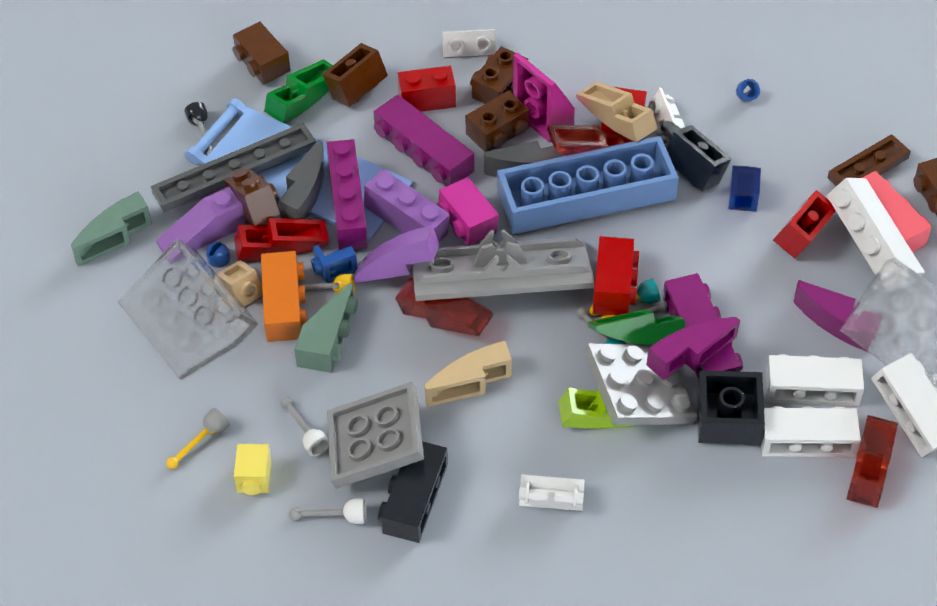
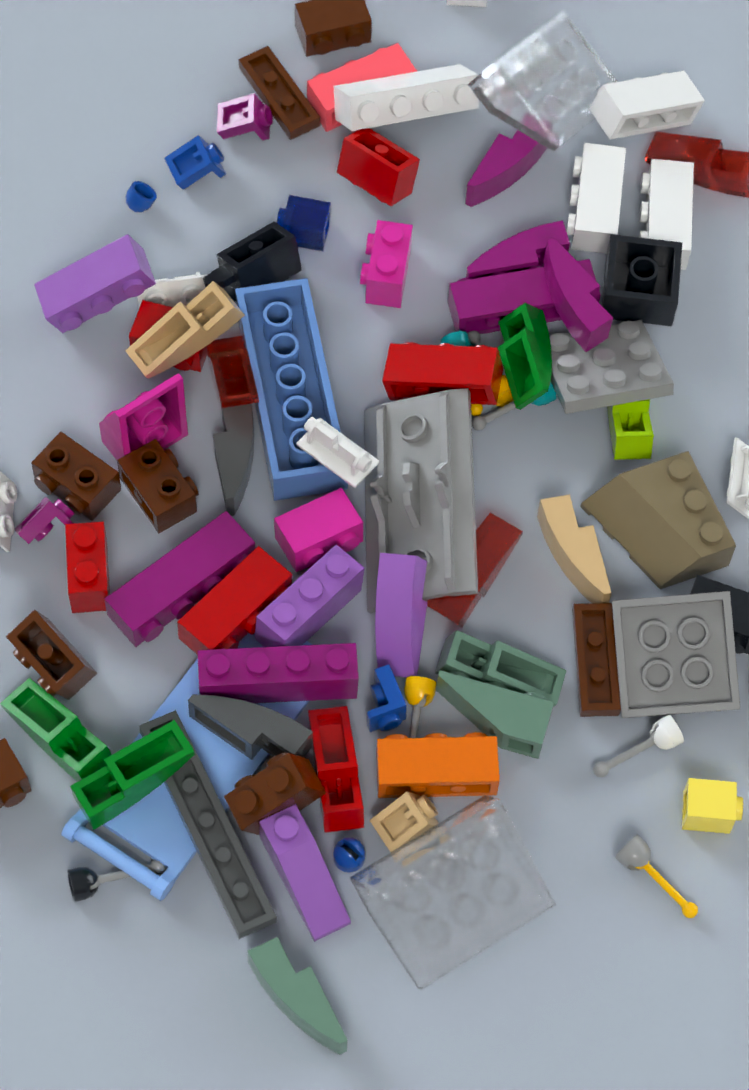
camera: 90 degrees left, 10 degrees up
(263, 117) = (132, 774): none -> green slope
(351, 390) = (596, 659): none -> reddish brown plate
(363, 331) = (501, 664): none -> sand green slope
(405, 164) = (232, 605): none -> red brick
(462, 63) = (38, 521): none -> magenta bracket
(505, 438) = (664, 520): none -> dark tan wedge
(521, 199) = (336, 451): none -> white hinge
(655, 63) = (95, 284): none -> medium lavender brick
(715, 240) = (388, 263): none -> dark pink brick
(752, 335) = (519, 251): none -> magenta slope
(789, 119) = (195, 161): none -> blue bracket
(837, 145) = (244, 116): none -> magenta bracket

